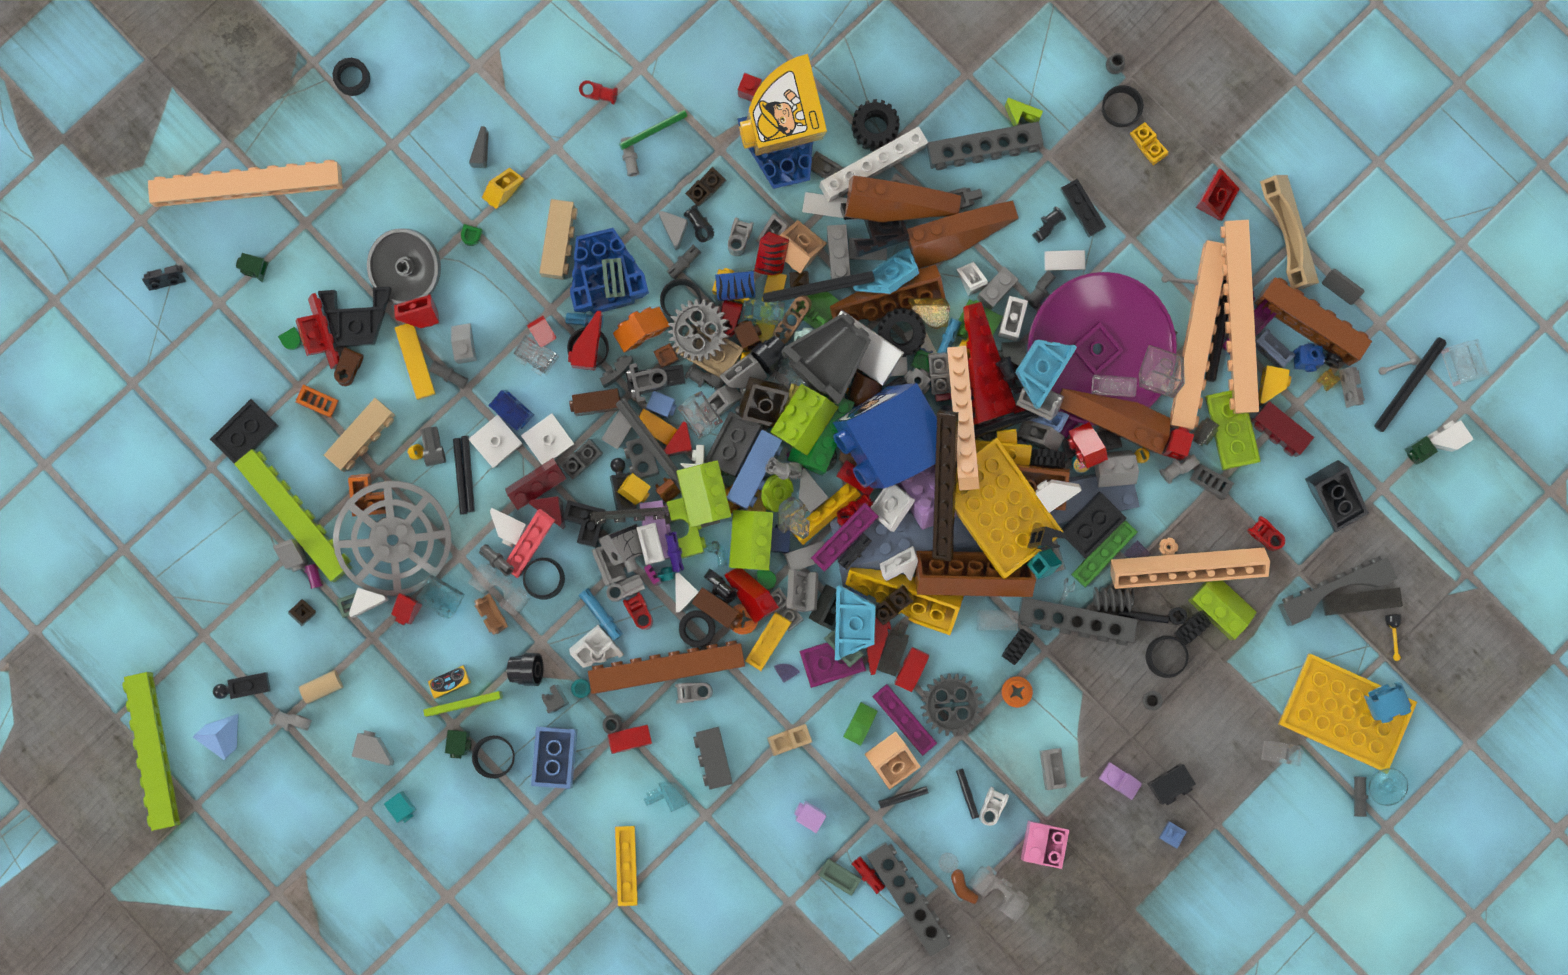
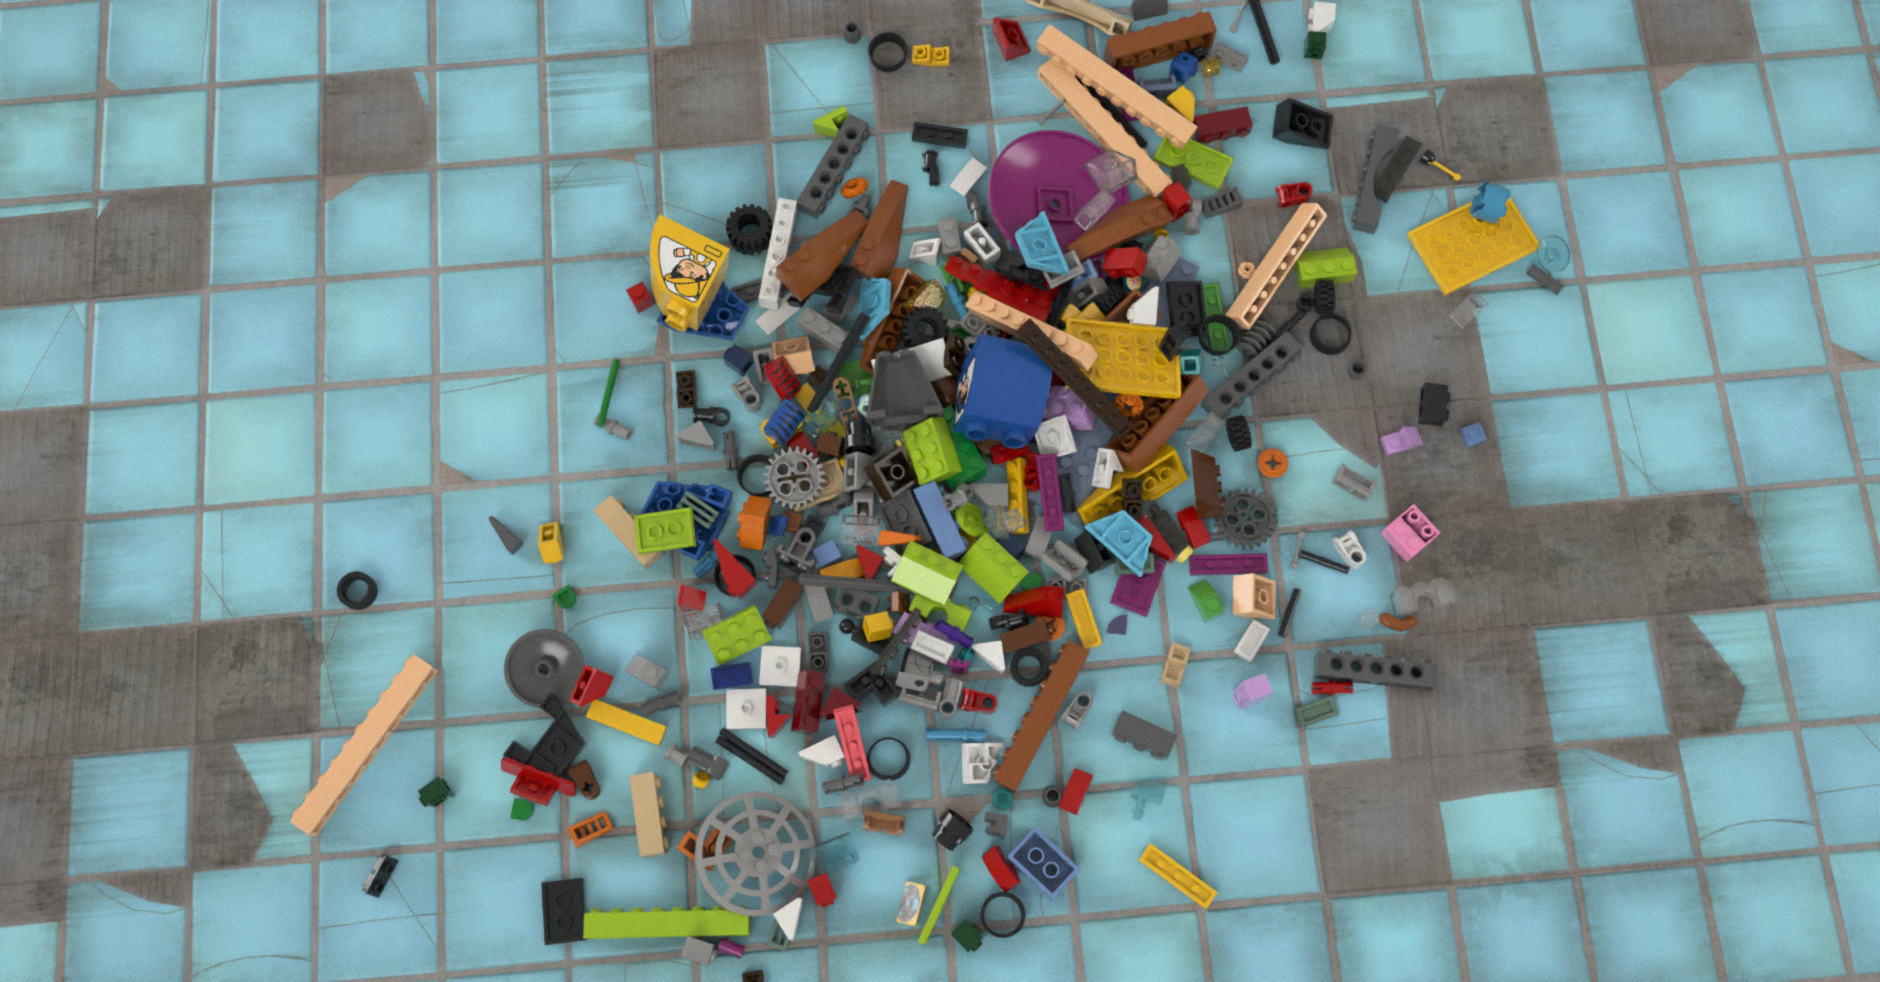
camera: 50 degrees left, 10 degrees down
(419, 419) = (677, 755): none -> light grey bush
(501, 471) = (775, 722): none -> red slope
(524, 733) = (1001, 871): none -> red slope
(543, 387) = (736, 635): none -> lime plate
(576, 267) = (665, 530): none -> lime tile
(599, 92) = (543, 410): red connector -> none
(653, 347) = (777, 525): none -> blue tile
(714, 446) = (890, 538): none -> orange slope
(761, 206) = (738, 360): none -> dark blue brick
(857, 784) = (1251, 640): none -> white tile
(884, 679) = (1185, 553): none -> light yellow tile
(899, 370) = (953, 353): none -> dark brown slope
(951, 654) = (1206, 485): none -> reddish brown slope
(966, 548) = (1132, 400): none -> orange gear
(975, 174) = (854, 188): none -> orange gear
(975, 759) = (1301, 535): none -> light grey hinge
(993, 317) = (968, 256): none -> medium nougat tile
(1107, 568) = (1229, 323): none -> black tyre
(1136, 550) = (1231, 294): clear purple tile -> none

